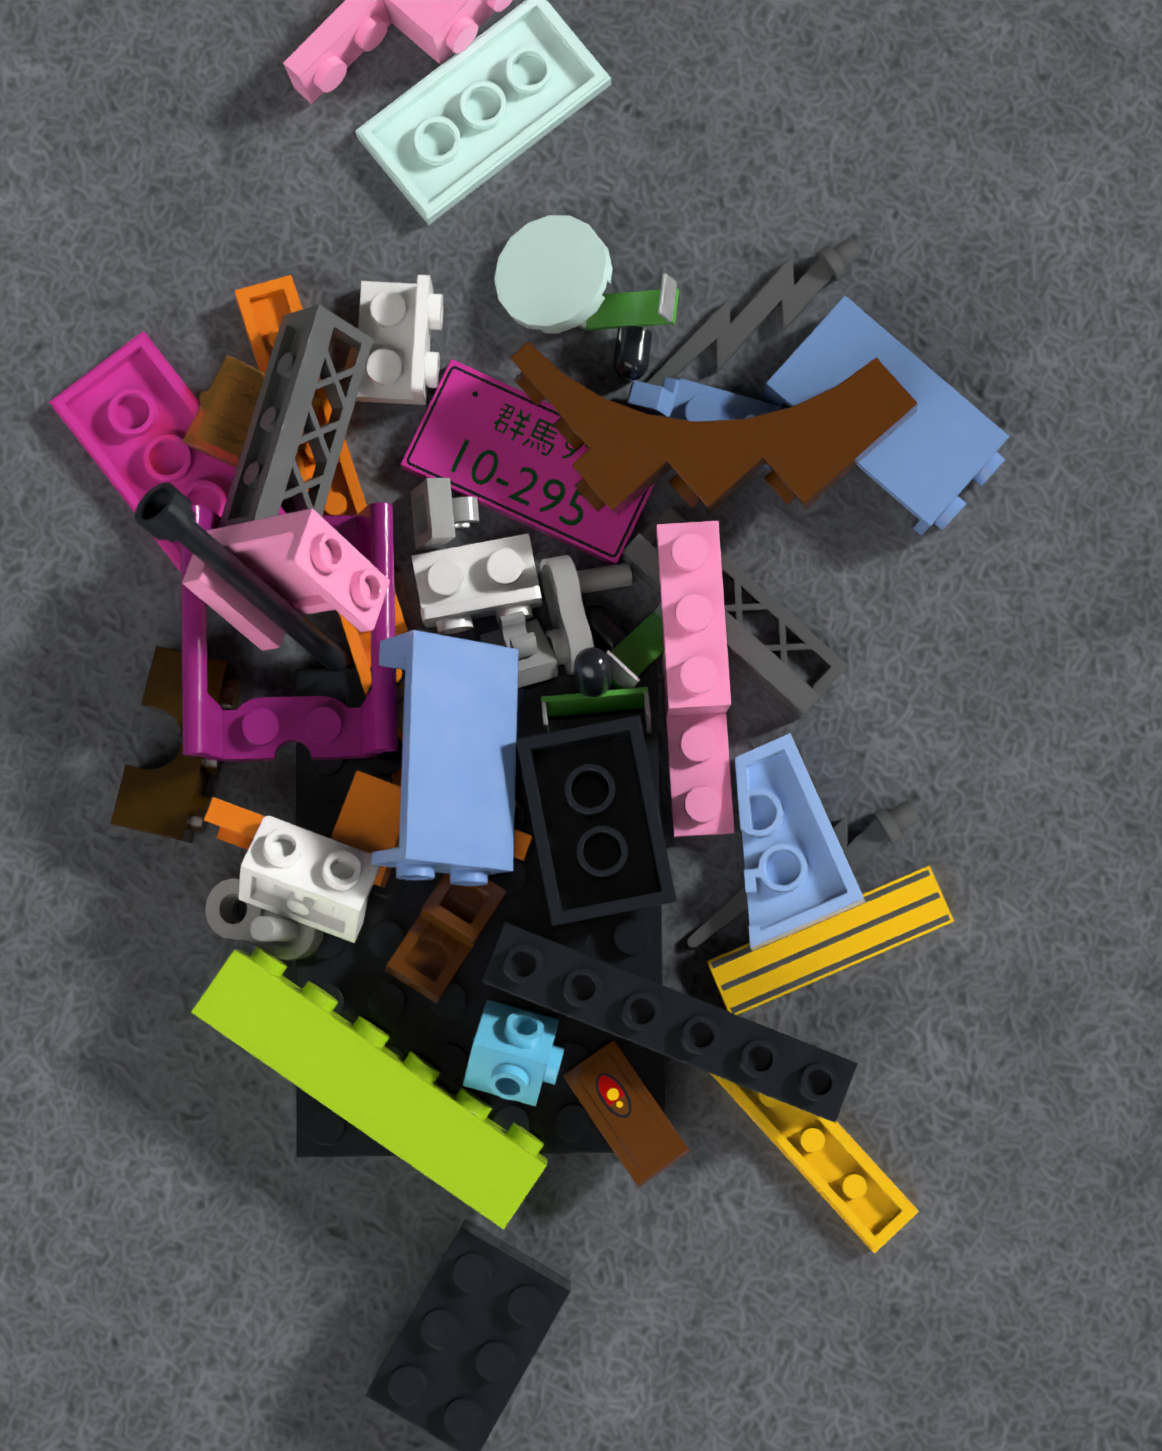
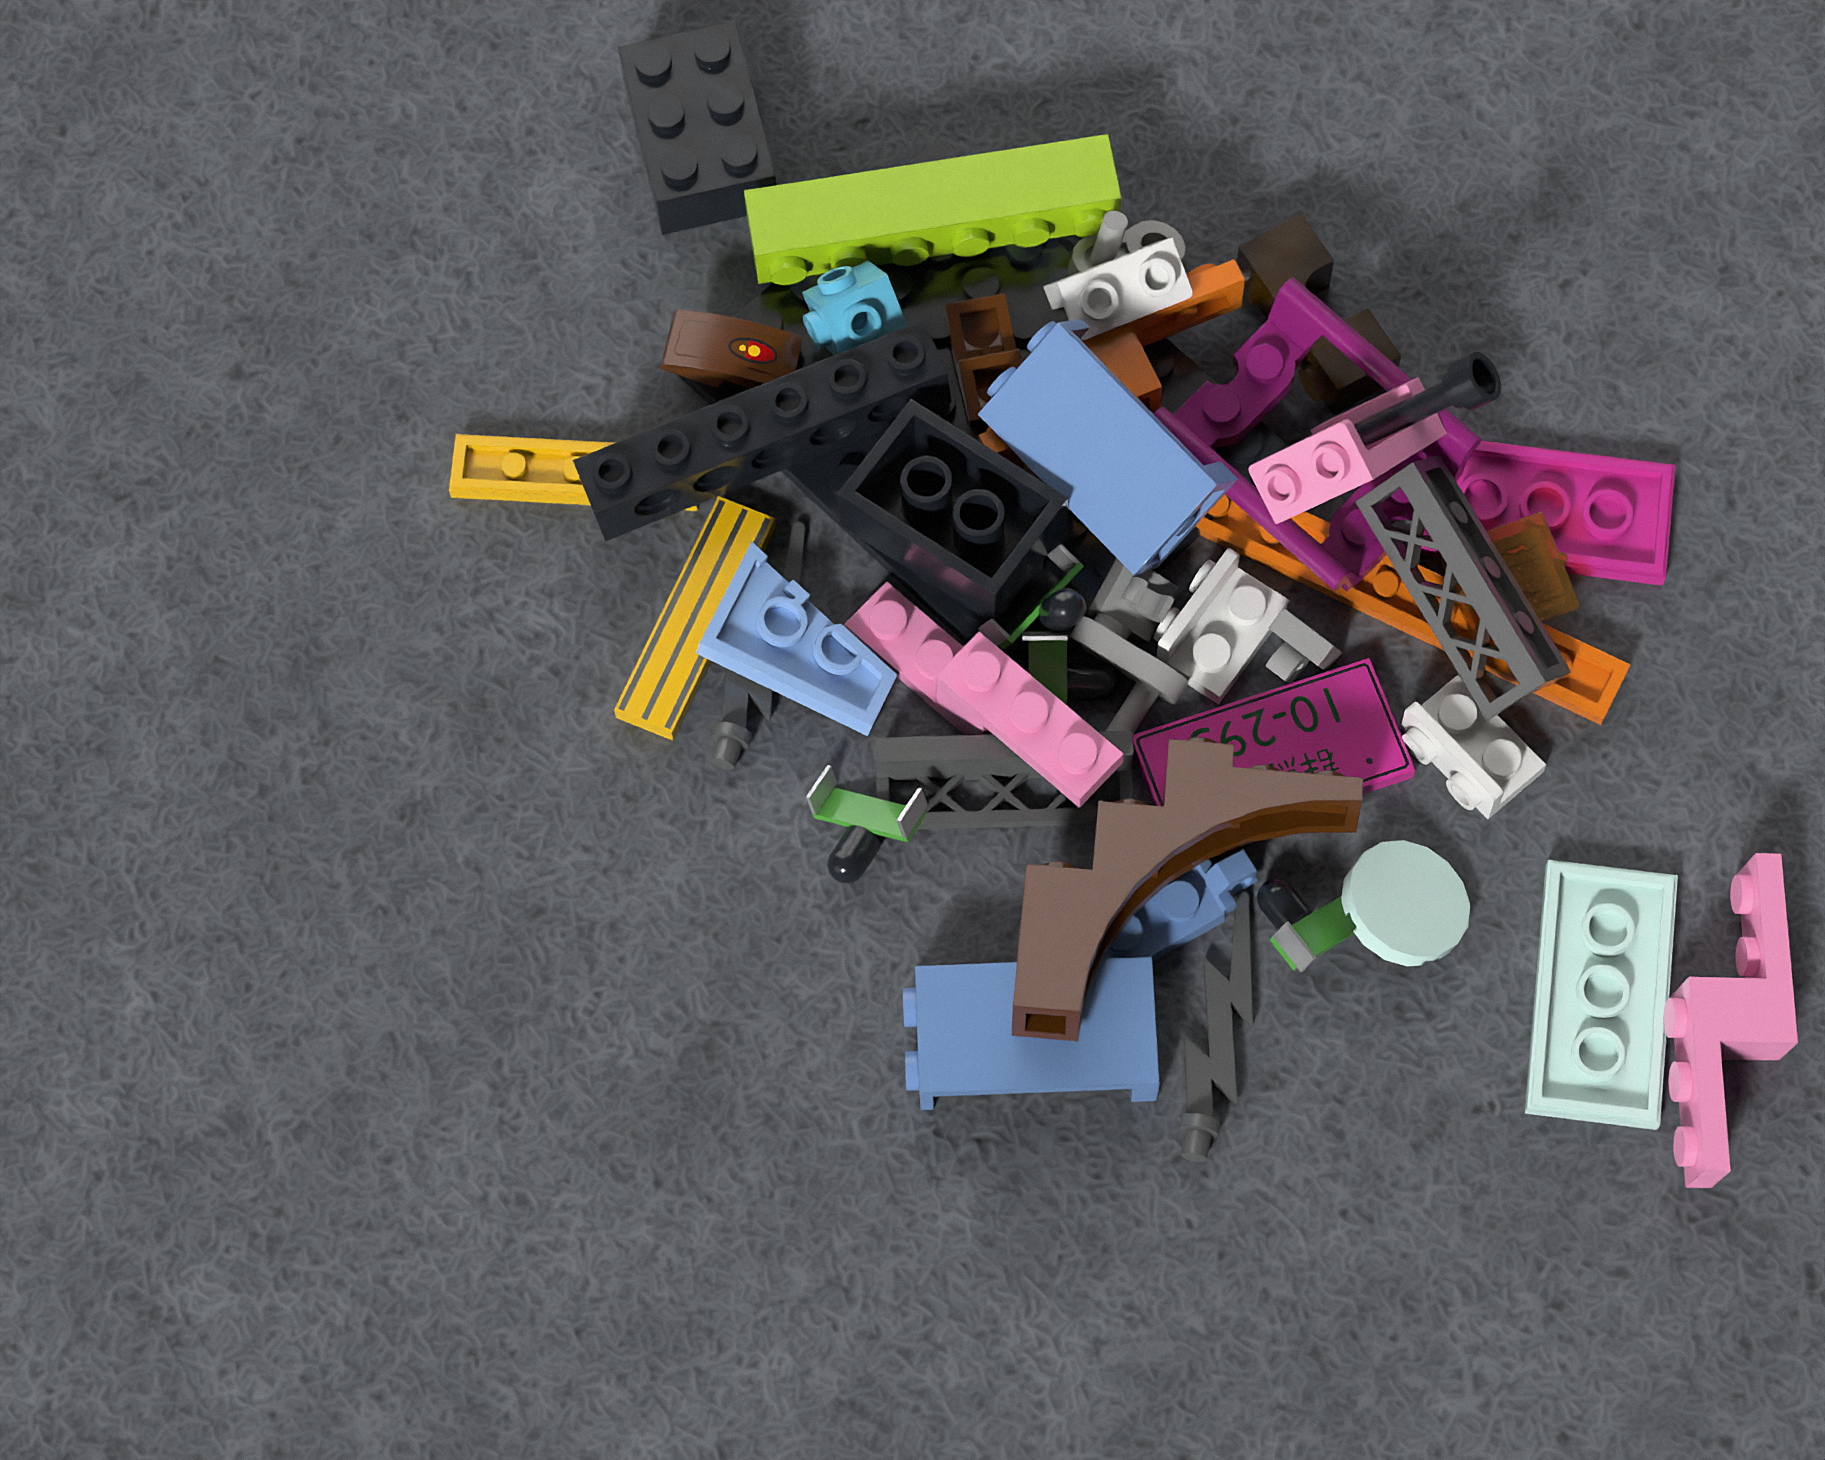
camera: 140 degrees right, 15 degrees down
(853, 674) = (863, 818): none -> piece

